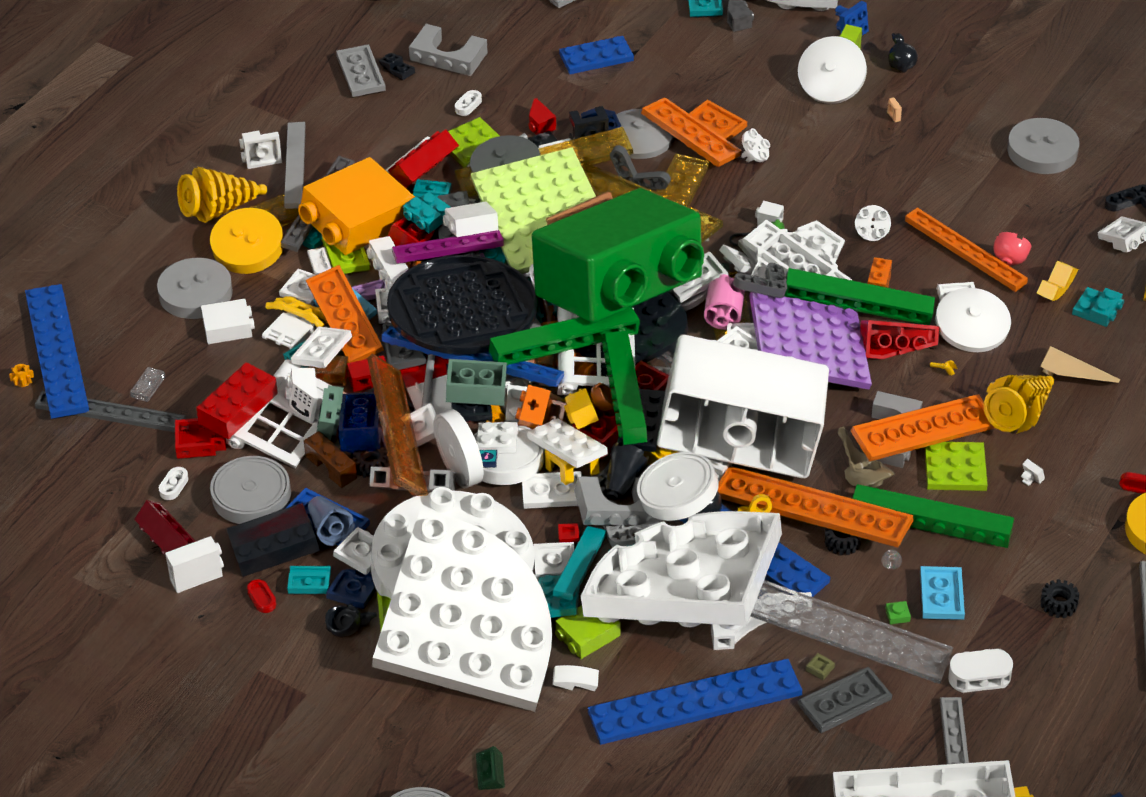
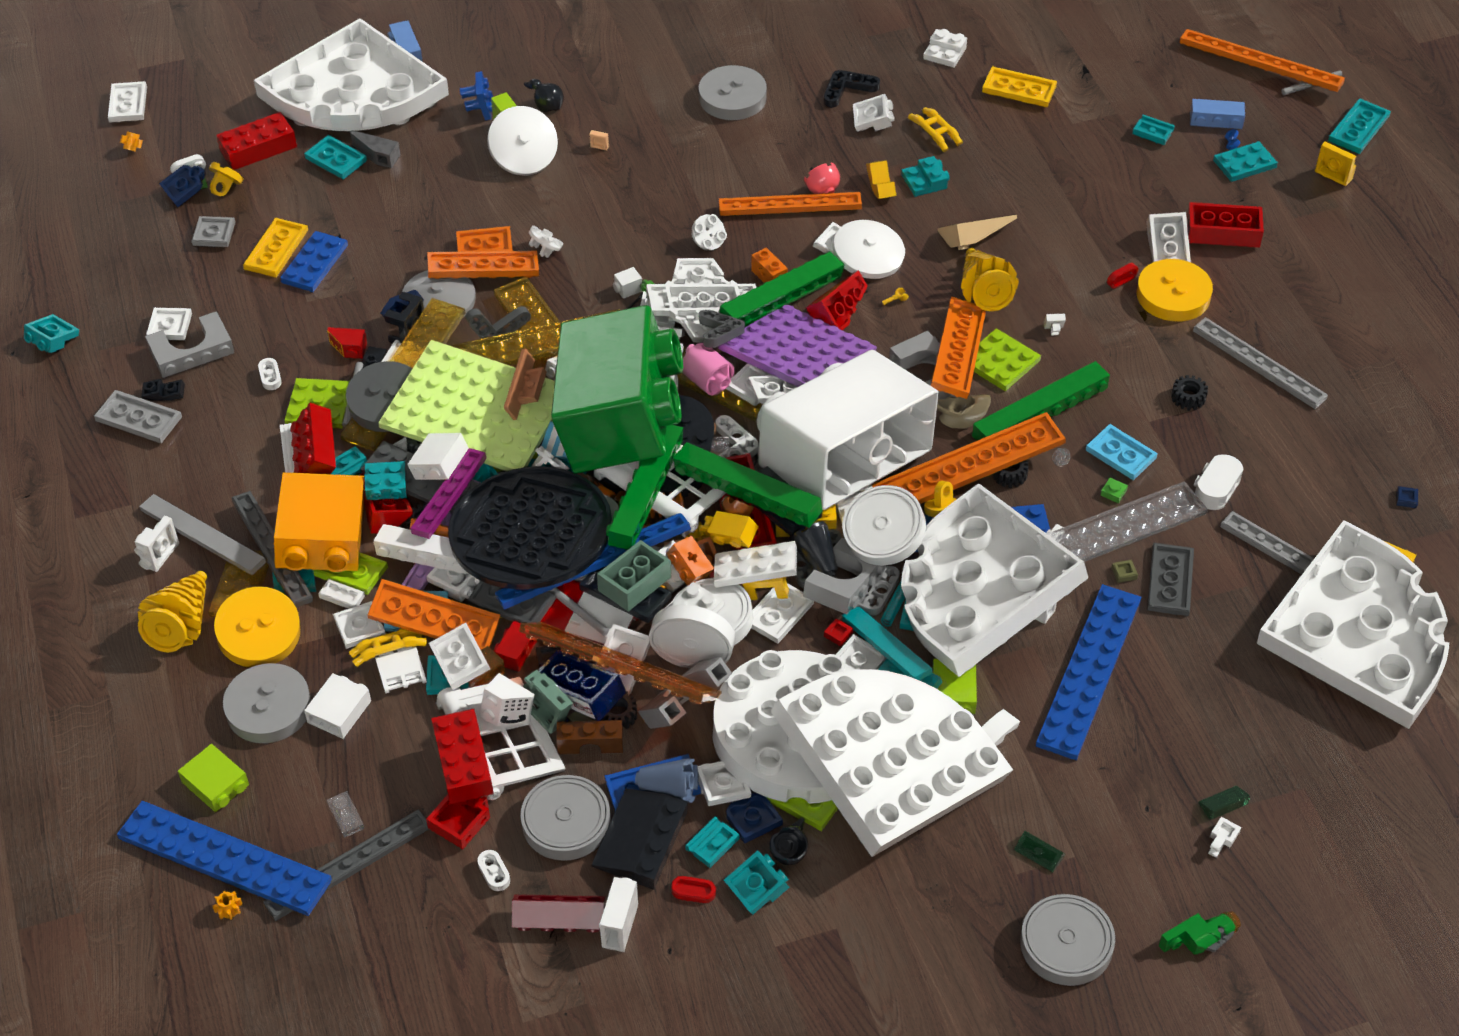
camera: 50 degrees left, 5 degrees up
(110, 303) = (213, 778): none -> lime brick
(298, 623) = (757, 882): none -> teal plate
(457, 28) = (172, 321): none -> white plate
(586, 29) = (275, 247): none -> yellow tile

